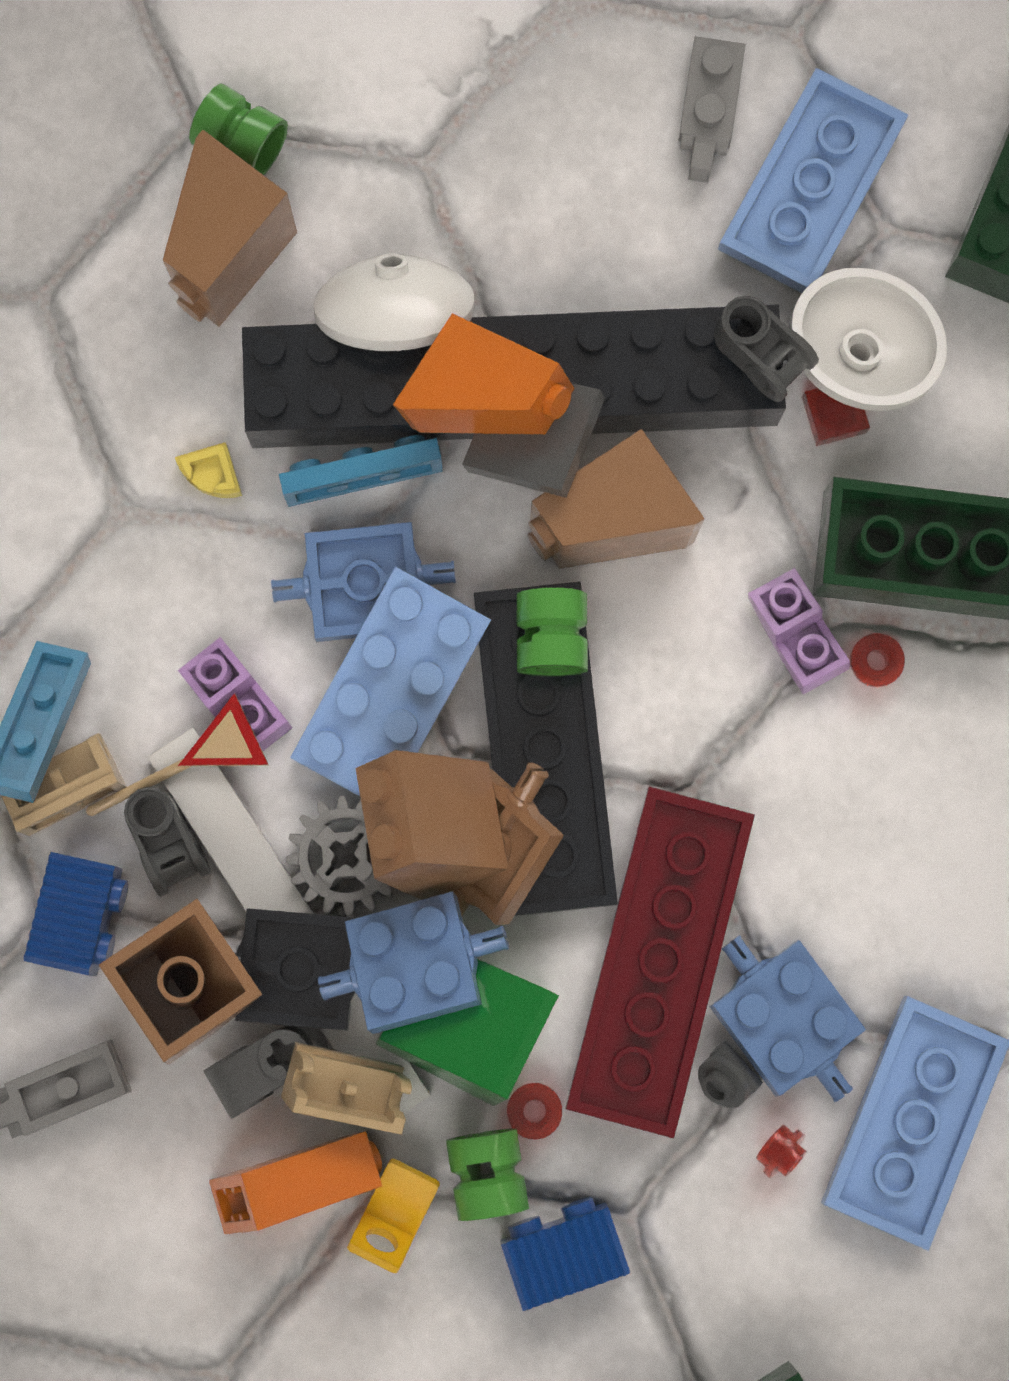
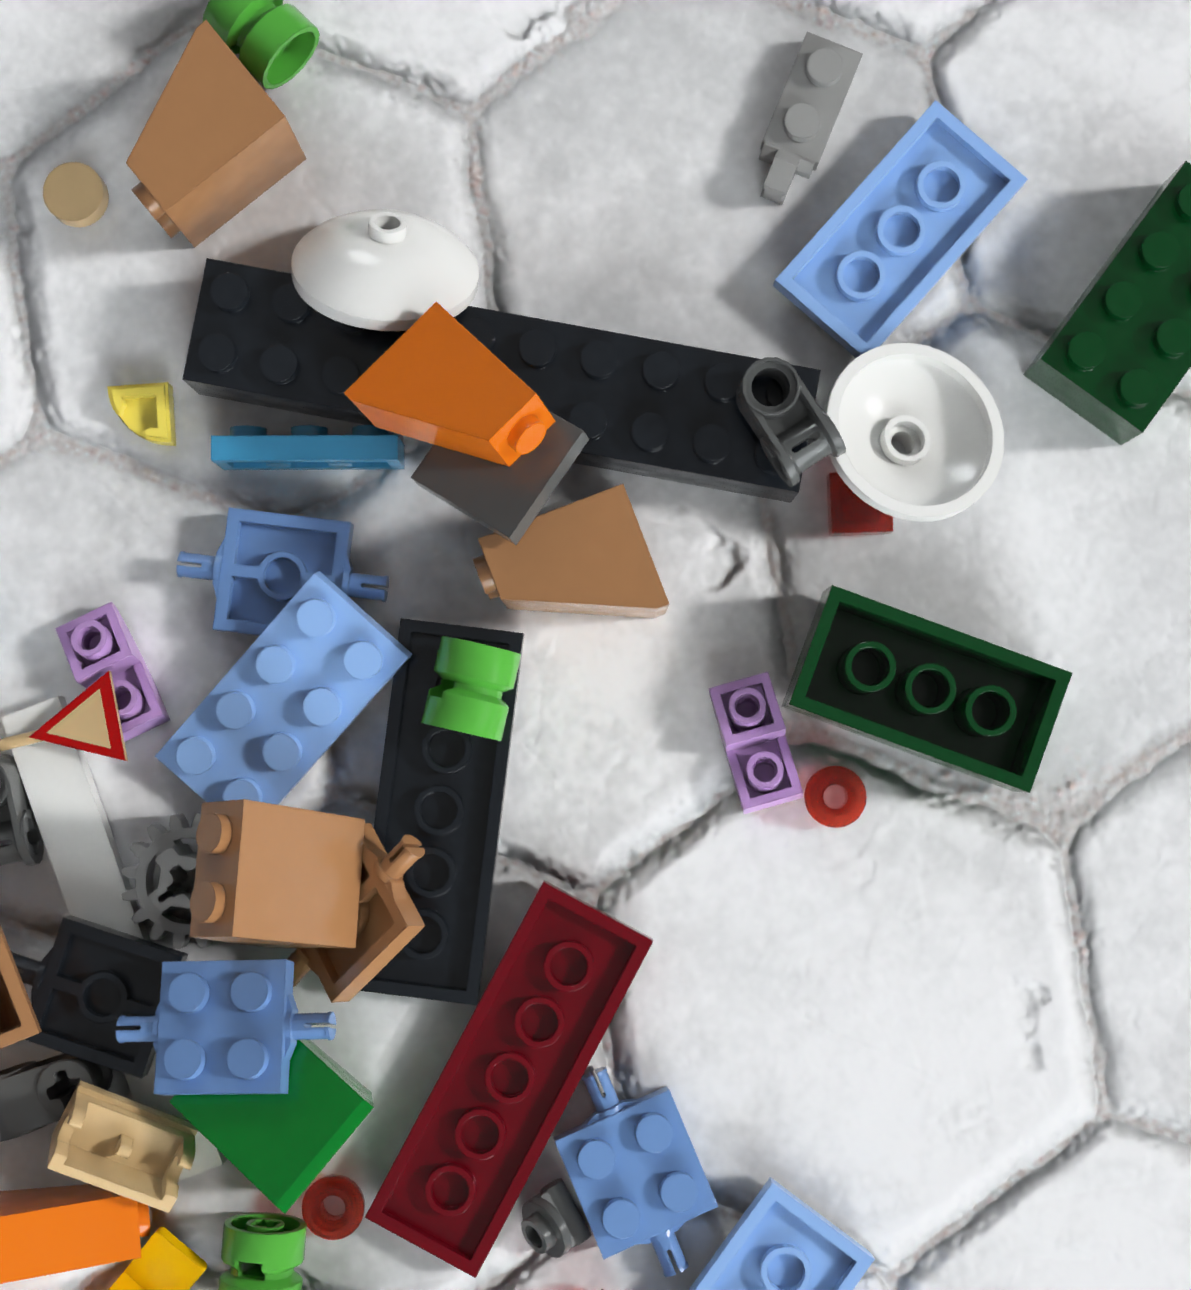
camera: 20 degrees right, 5 degrees up
(109, 304) = (75, 194): none -> tan tile

